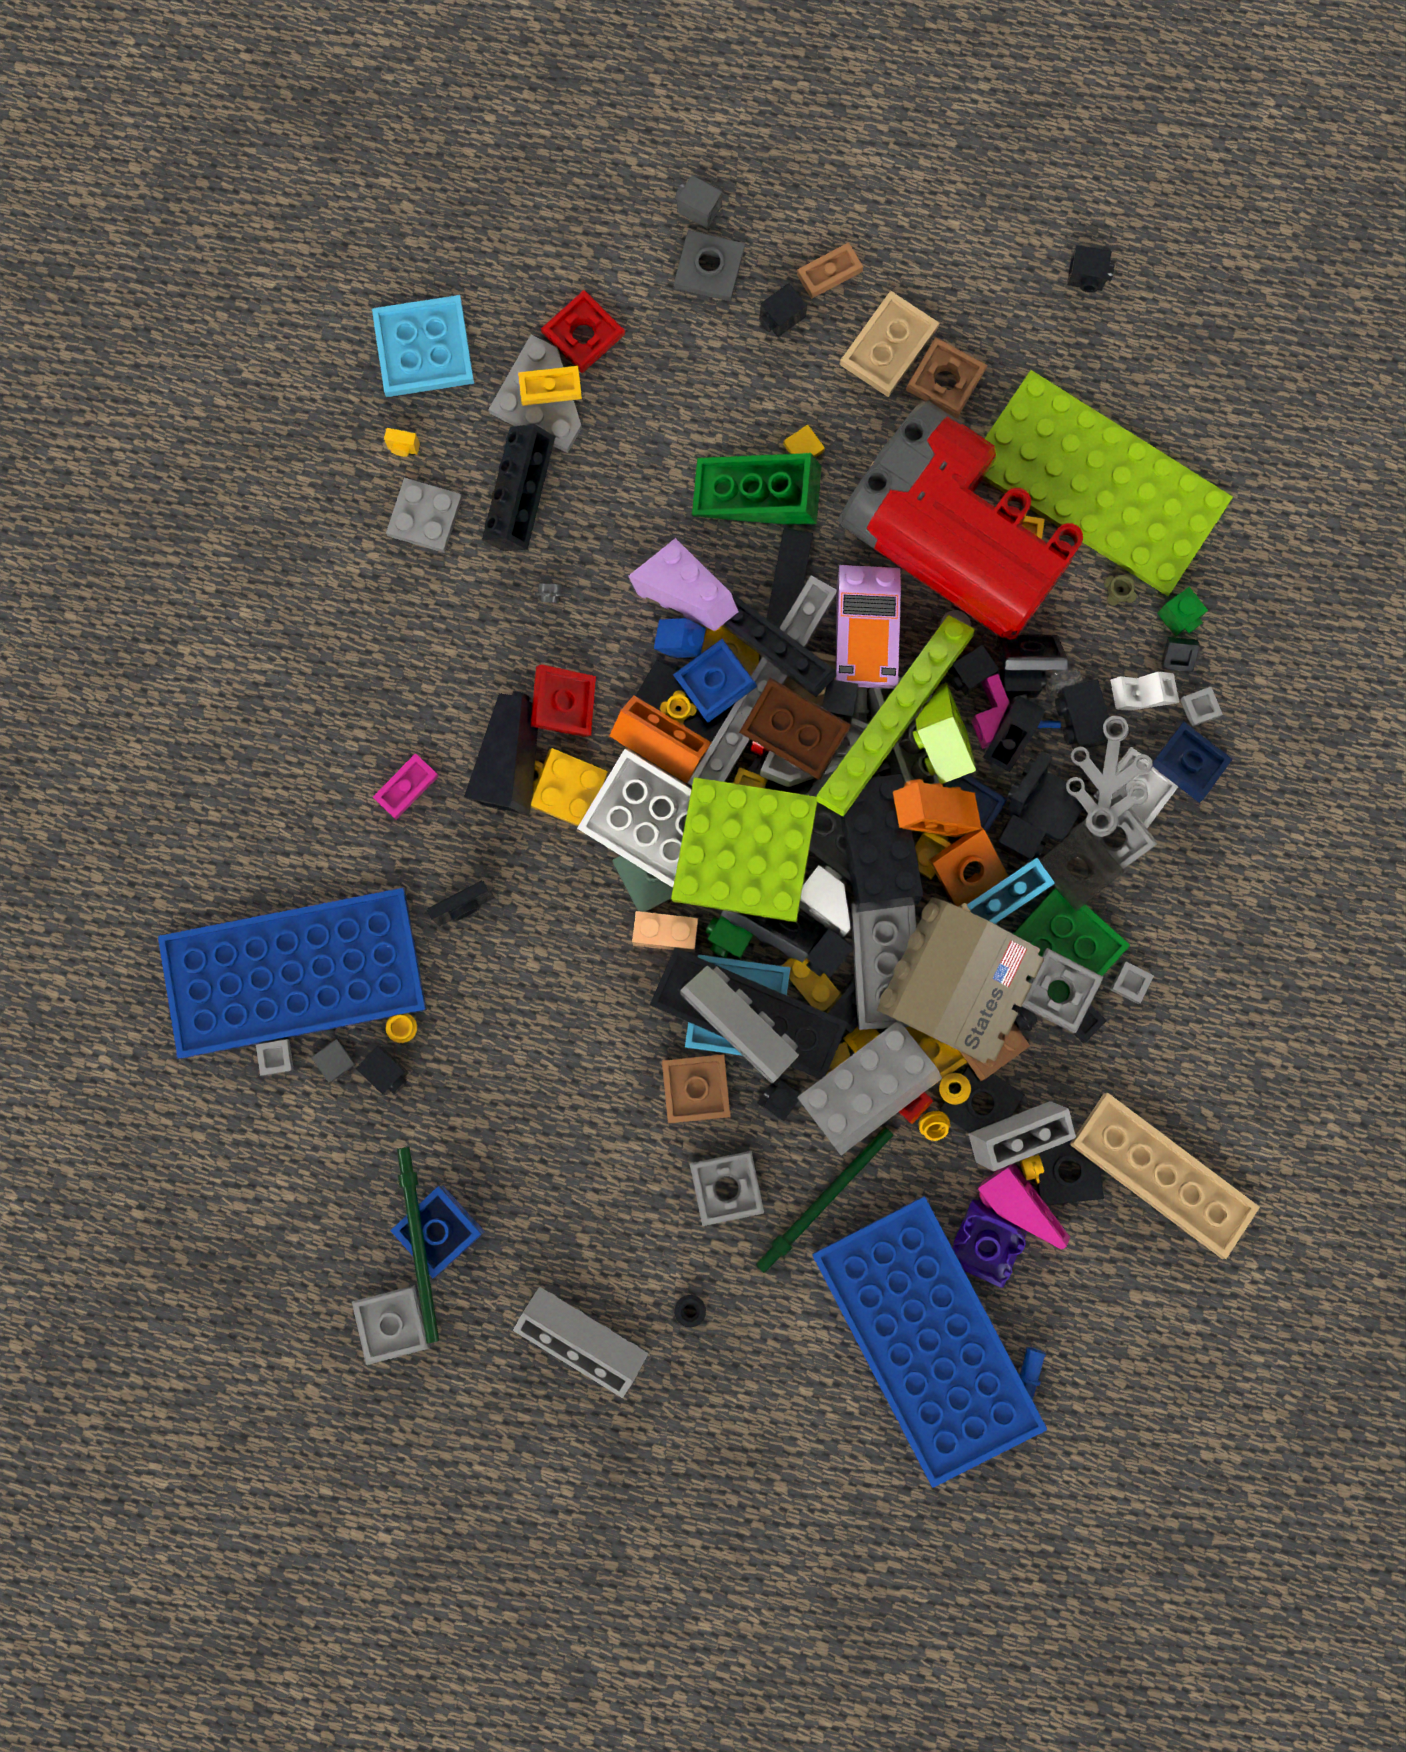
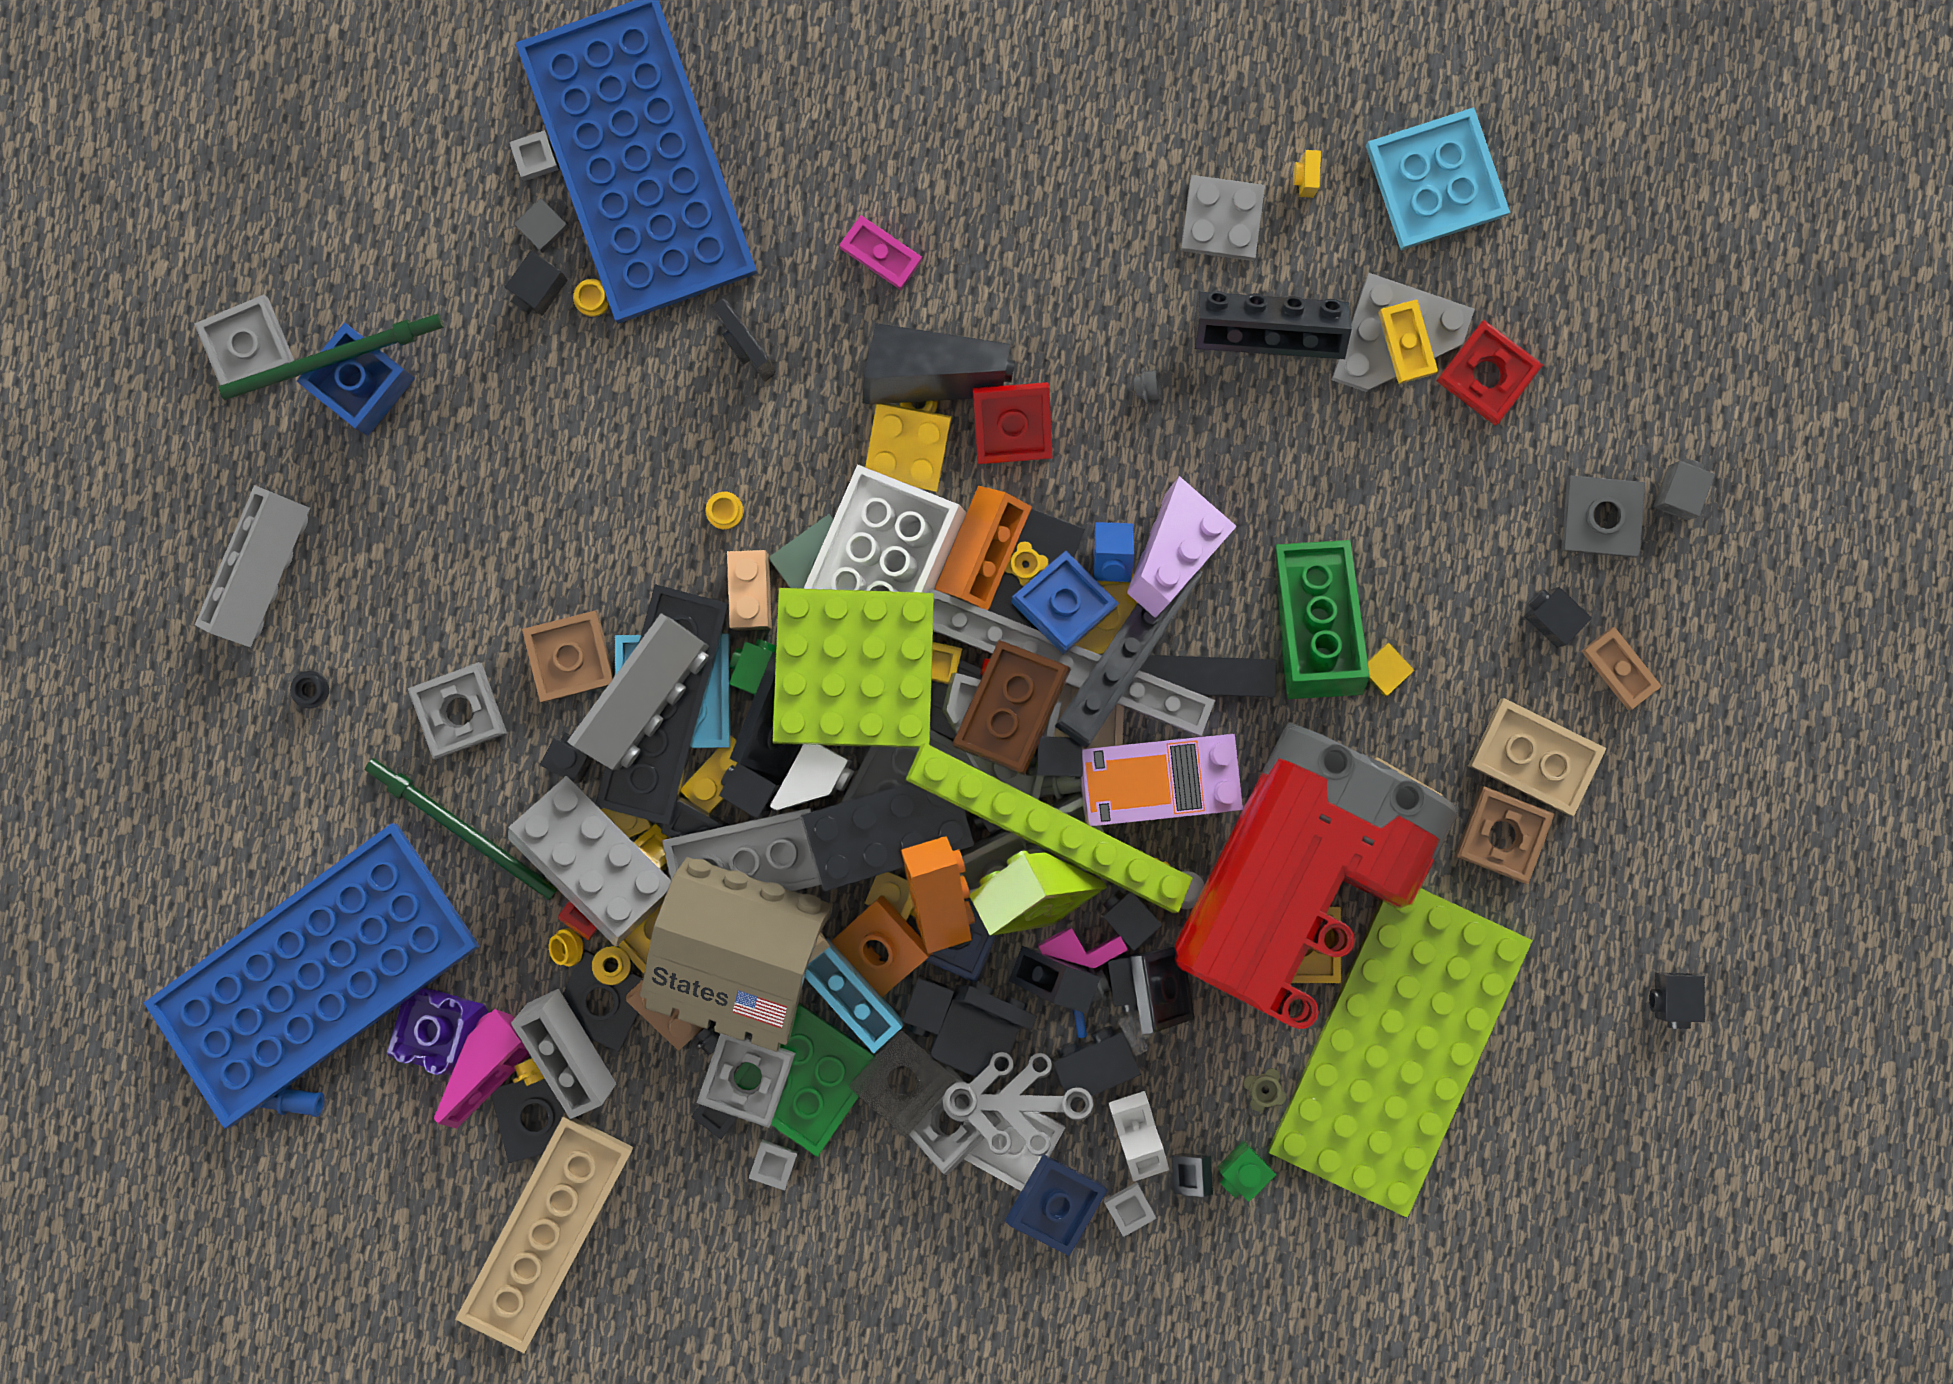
camera: 80 degrees right, 5 degrees up
(595, 944) = (724, 510): none -> yellow plate

